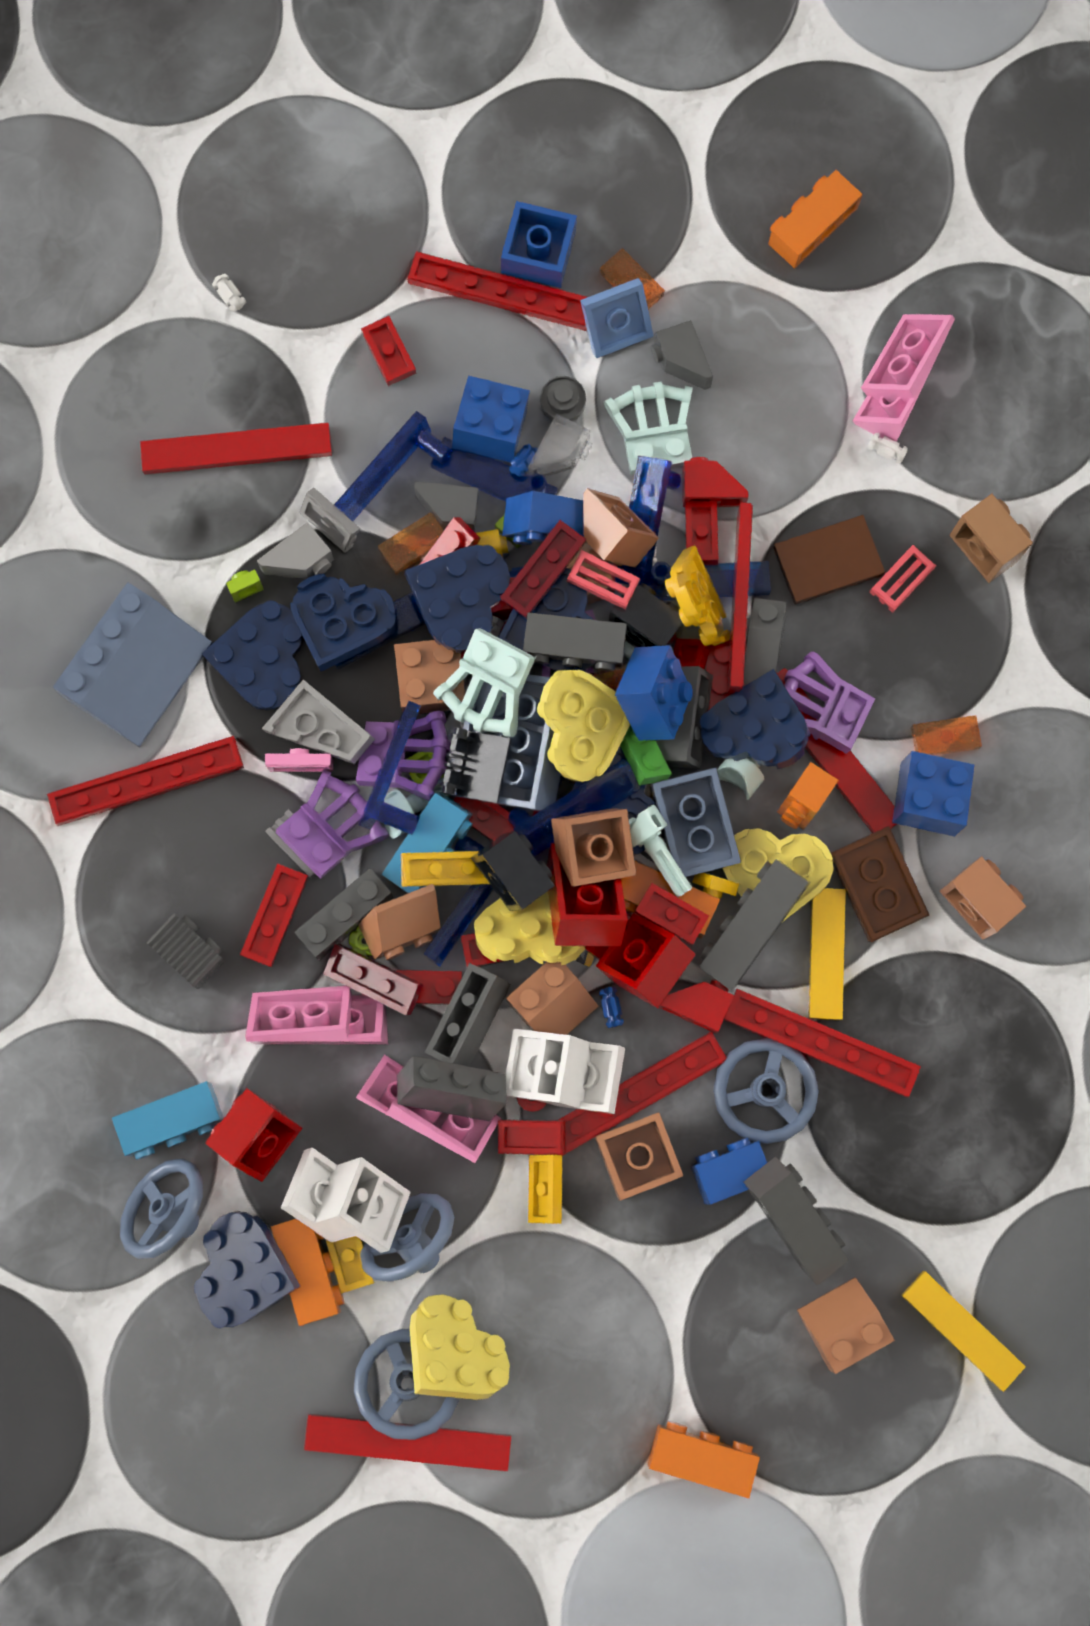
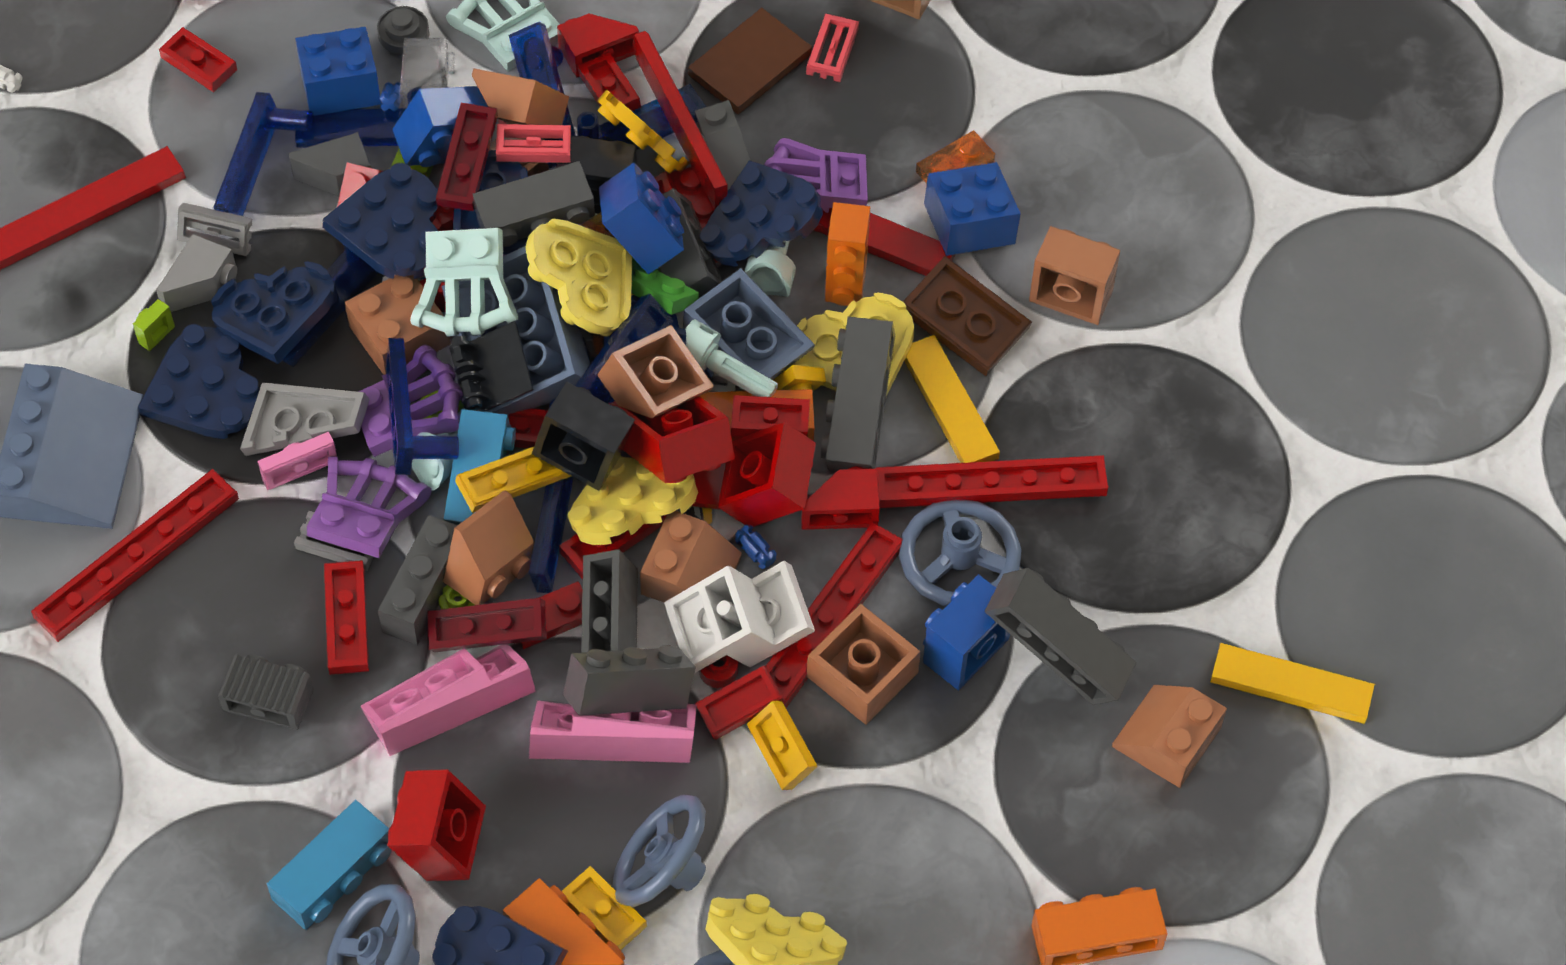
camera: 25 degrees left, 20 degrees down
(346, 1200) = (572, 840): white bracket -> none
(411, 543) = (305, 223): clear orange plate -> none

